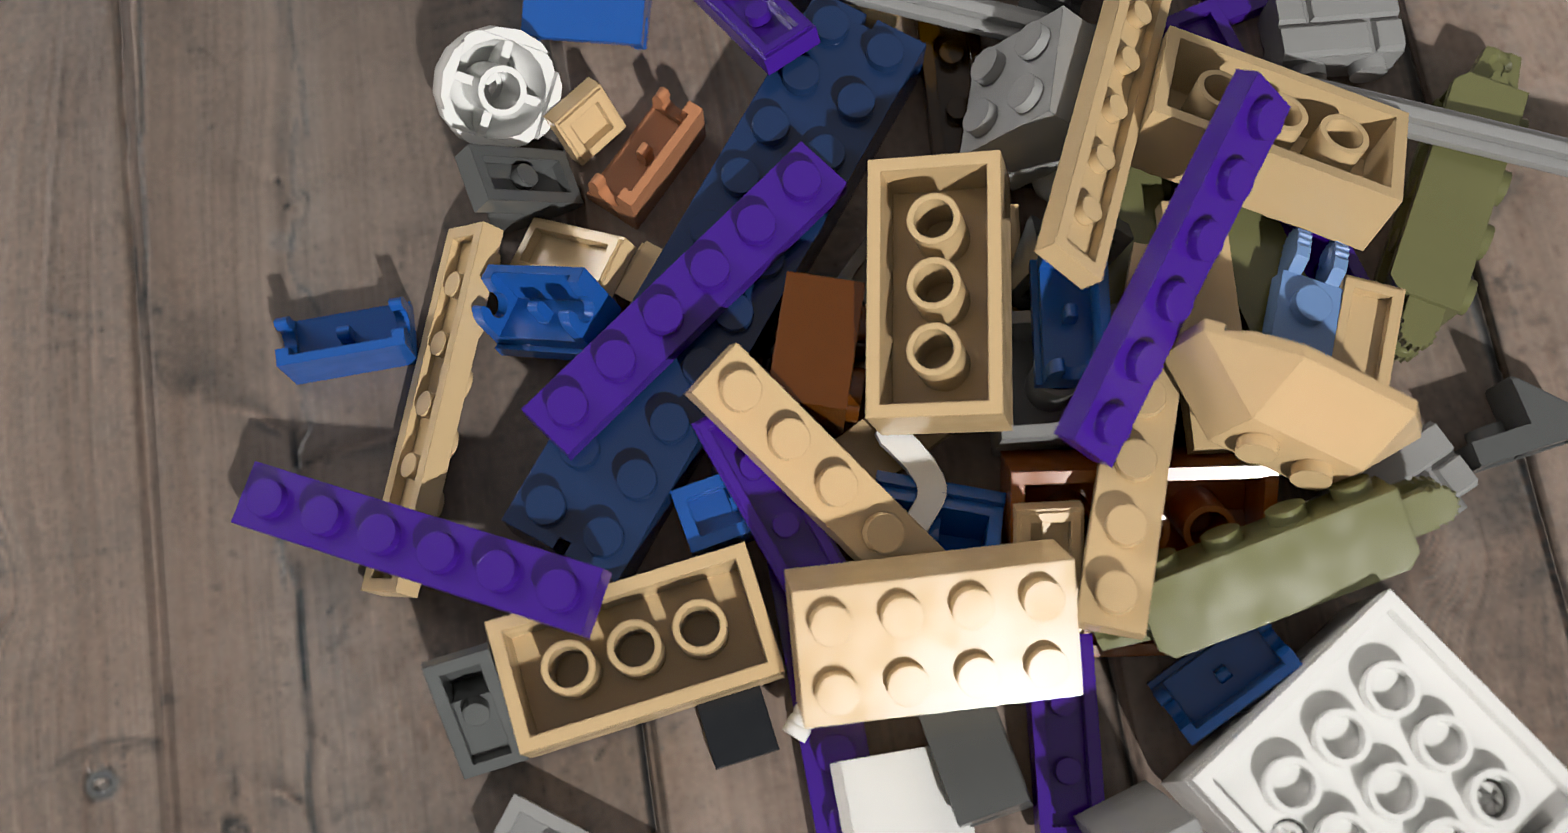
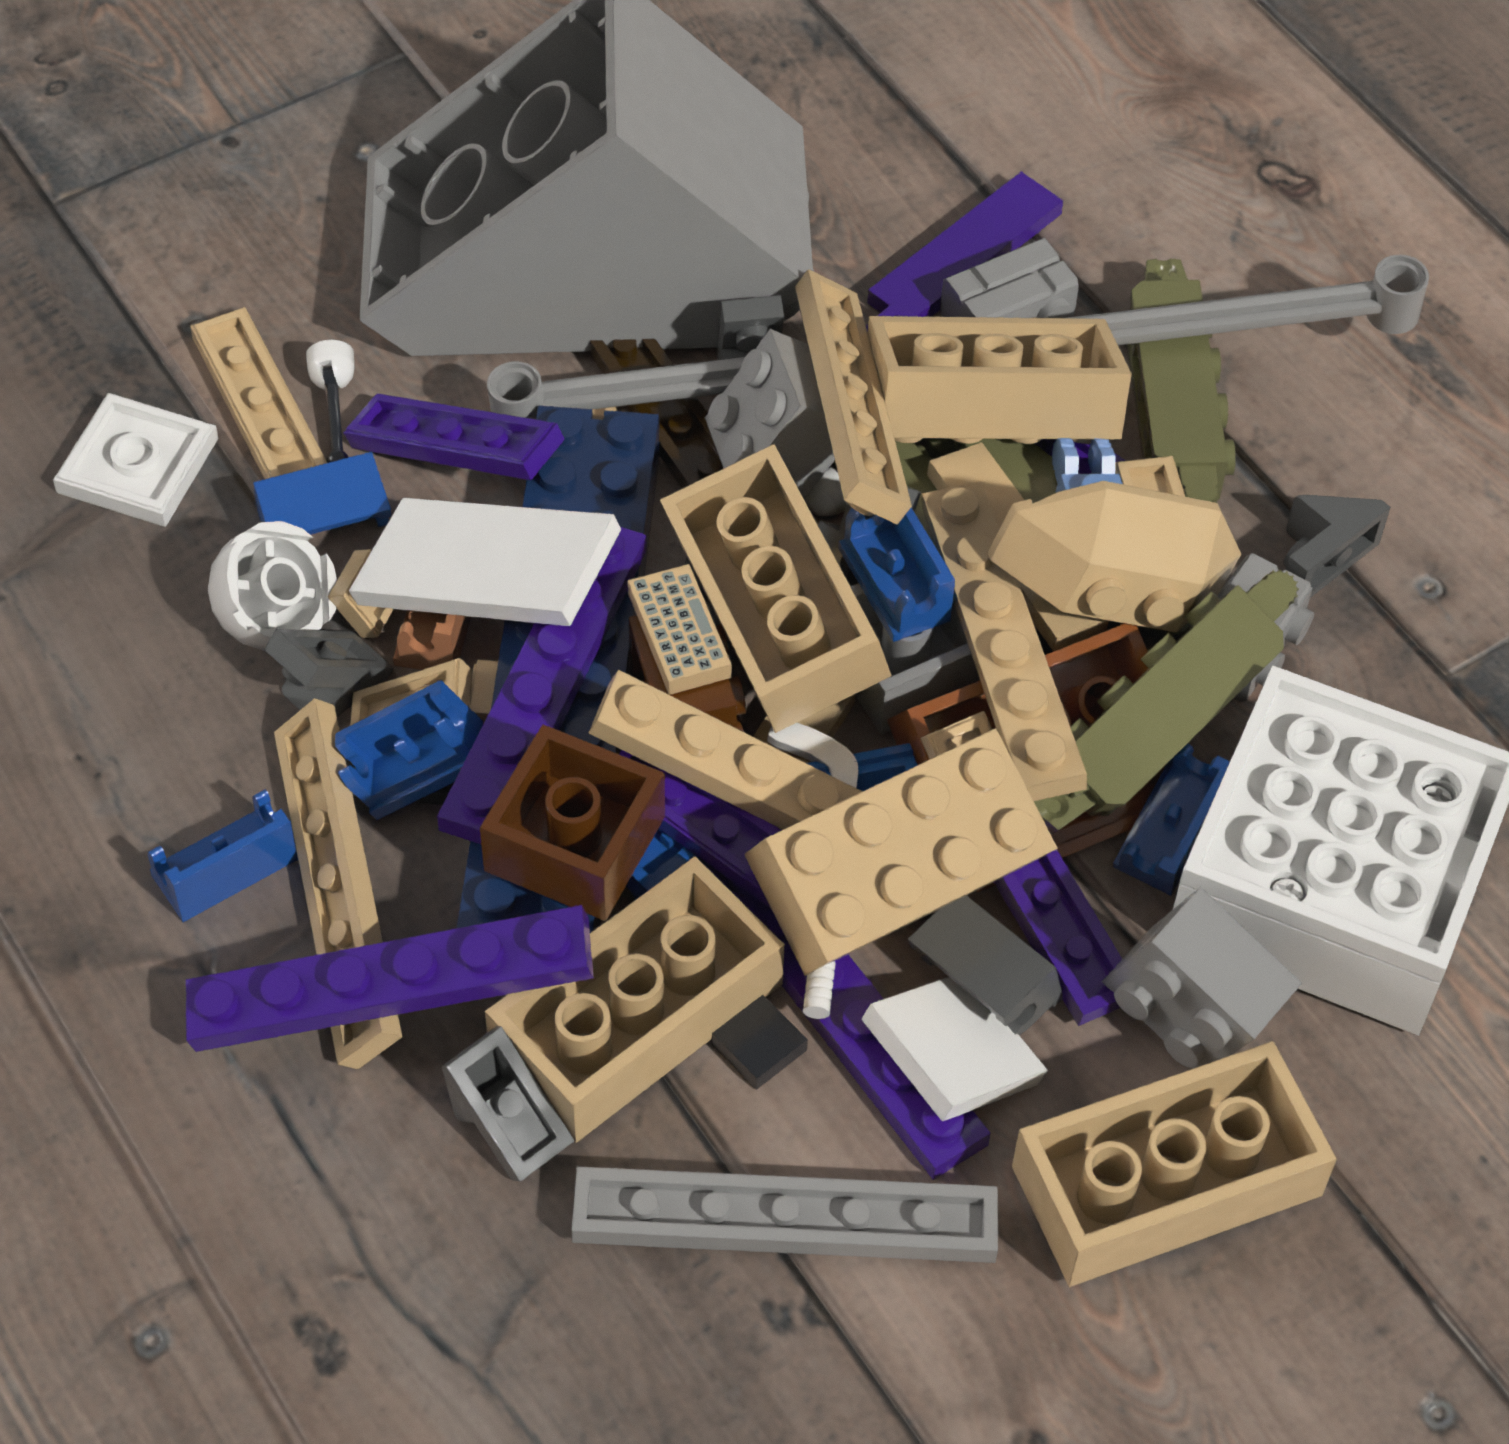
camera: 25 degrees left, 20 degrees down
(633, 476) = (573, 821): none -> reddish brown brick
(689, 151) = (486, 561): none -> white tile
(825, 308) = (679, 629): none -> tile
(1173, 268) = (966, 485): dark purple plate -> none

